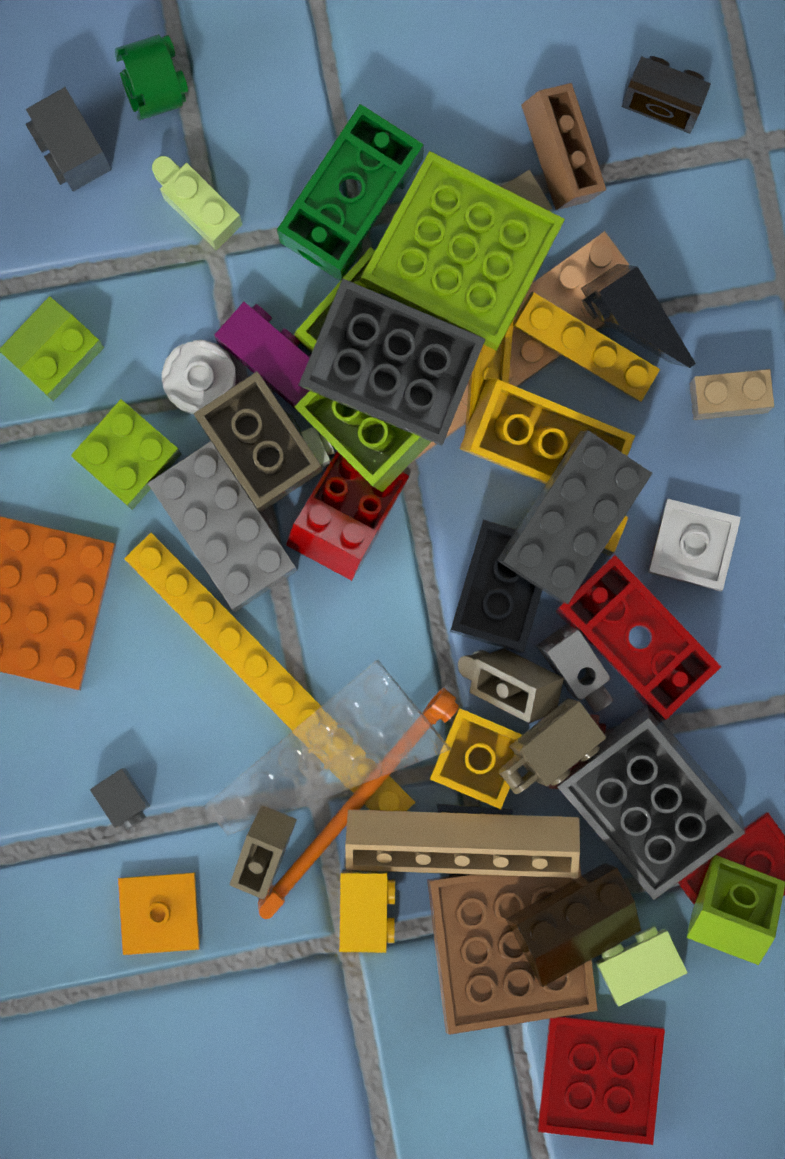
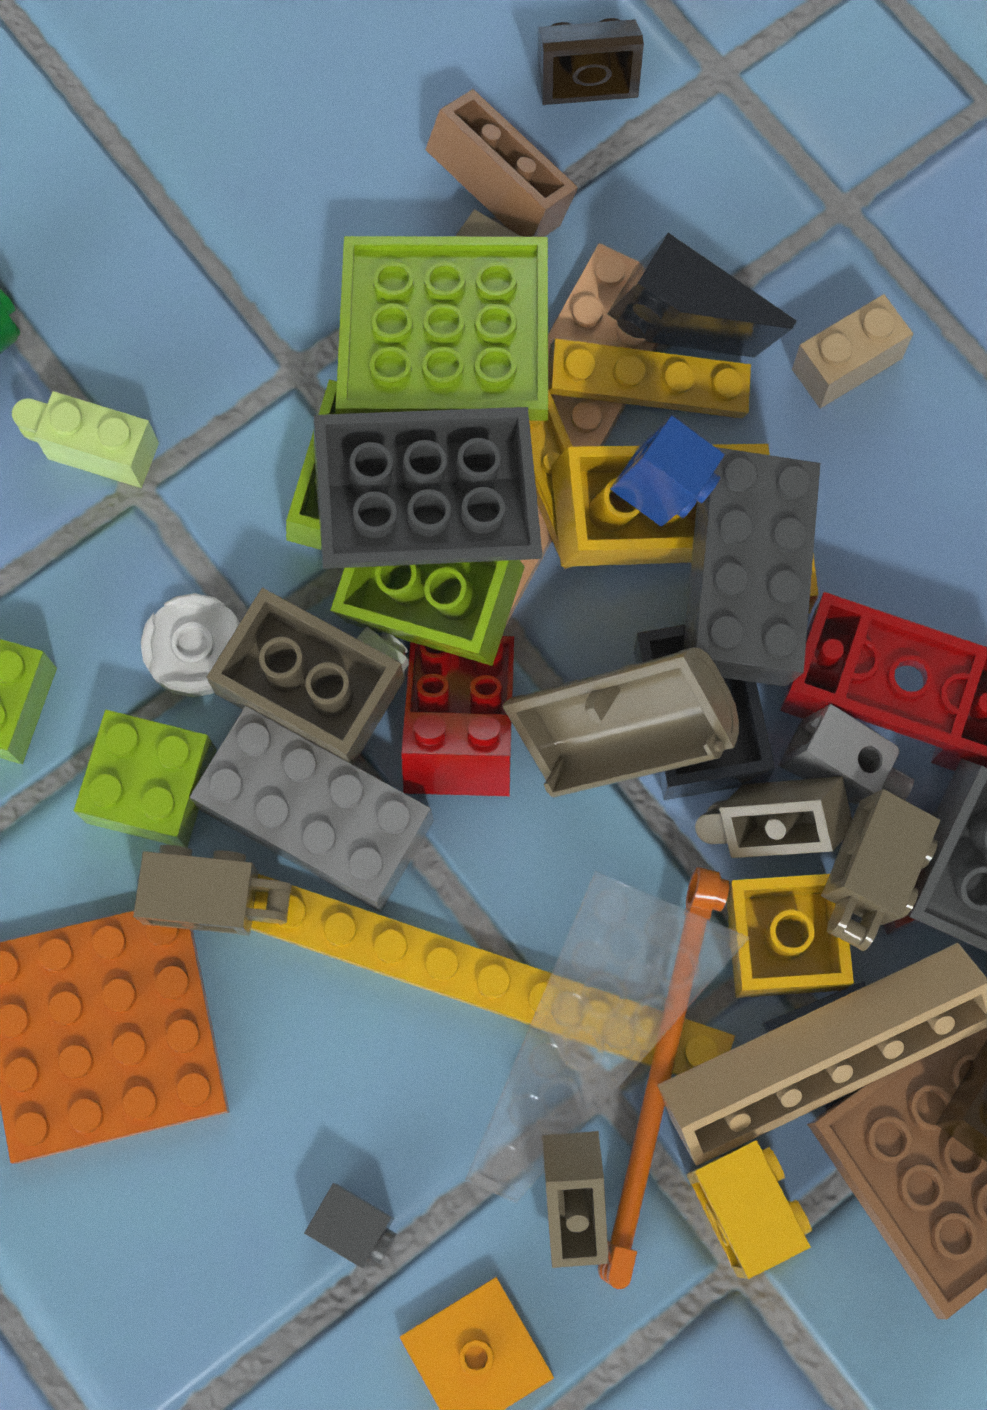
camera: 25 degrees left, 10 degrees down
(128, 549) = (205, 892): none -> dark tan brick
(265, 350) = (238, 563): magenta brick -> none
(325, 223) = (262, 381): green plate -> none
(443, 577) = (627, 722): none -> dark tan container
(549, 432) = (669, 473): none -> blue brick
(694, 545) = (905, 547): white plate -> none

